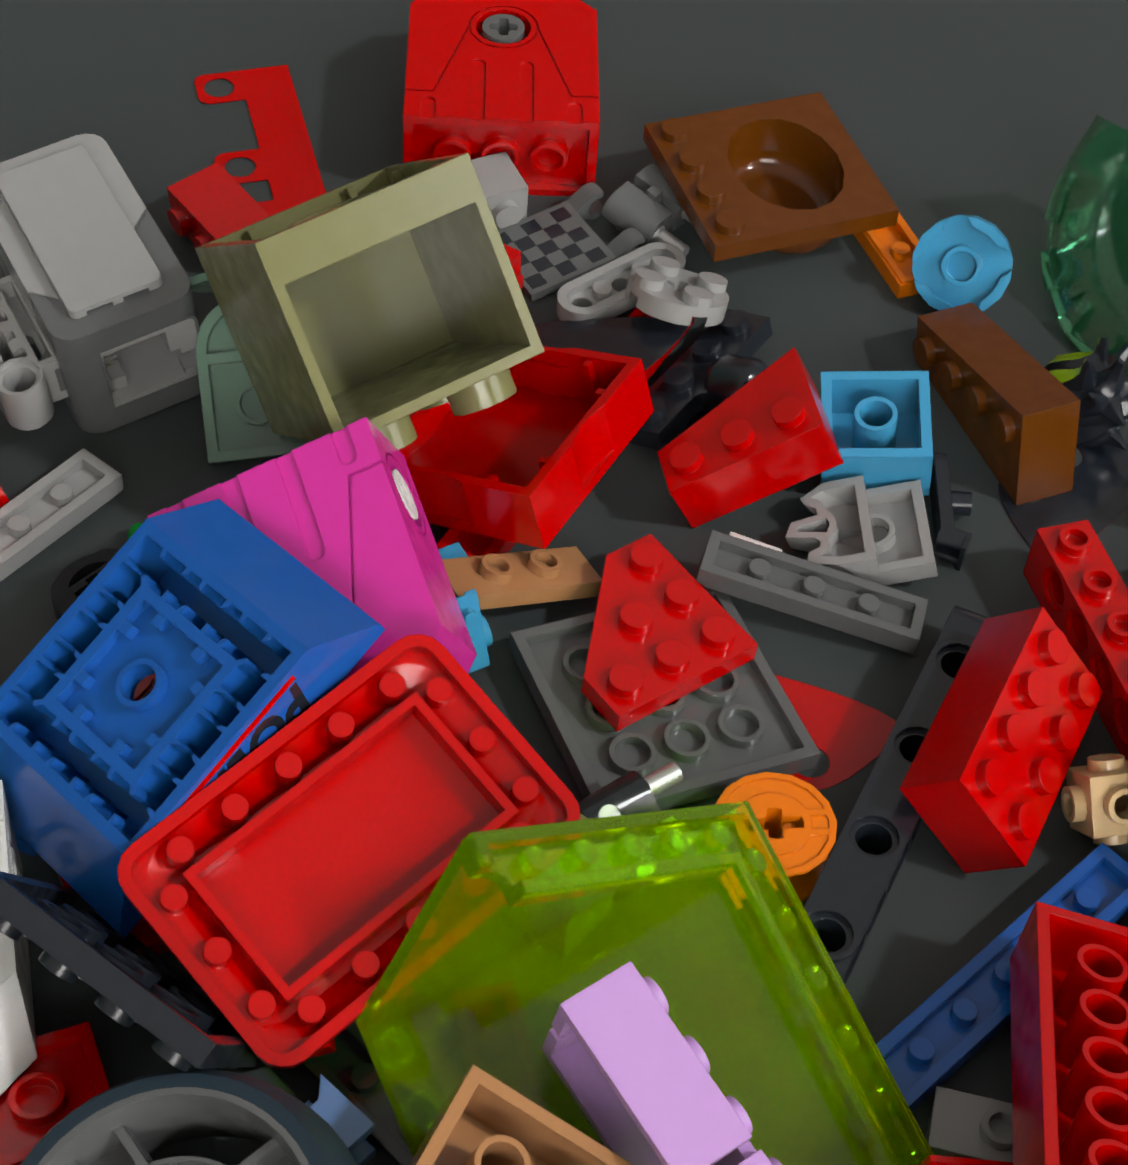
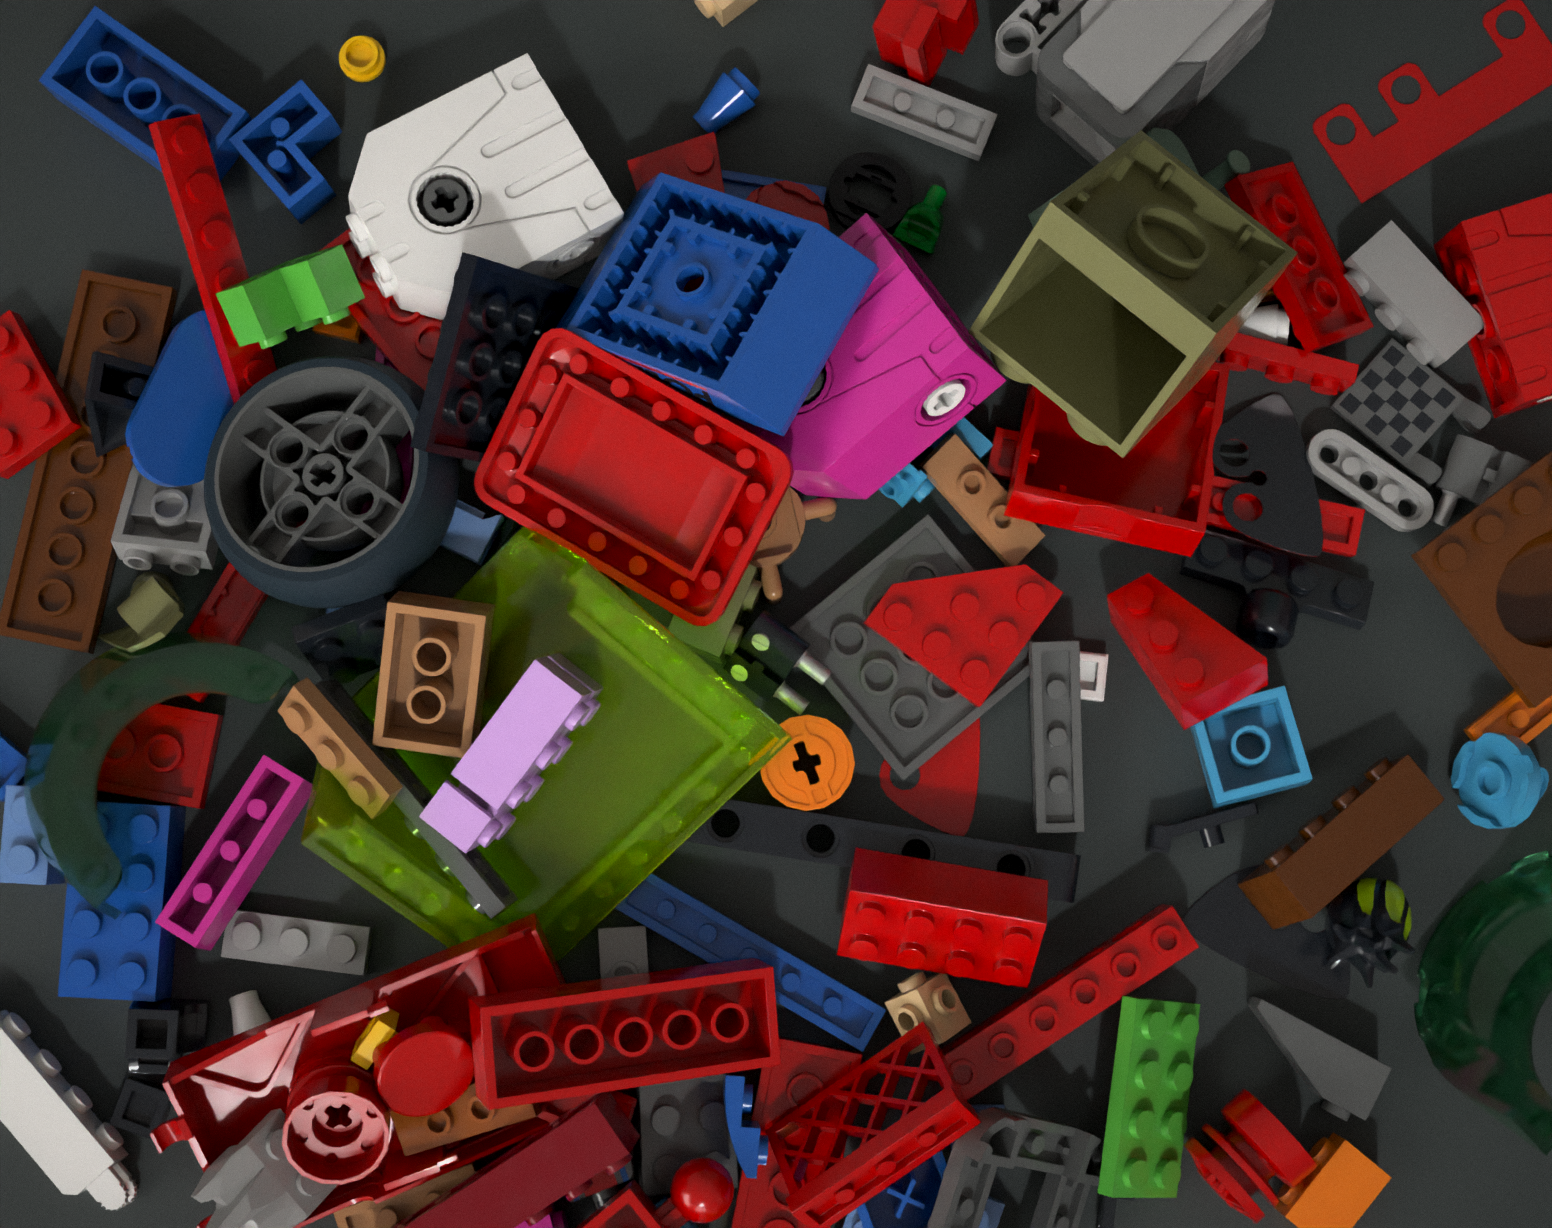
camera: 75 degrees right, 35 degrees up
(210, 205) = (1309, 106): red brick -> none
(678, 294) = (1373, 530): light grey plate -> none
(867, 532) = (1144, 767): light grey plate -> none

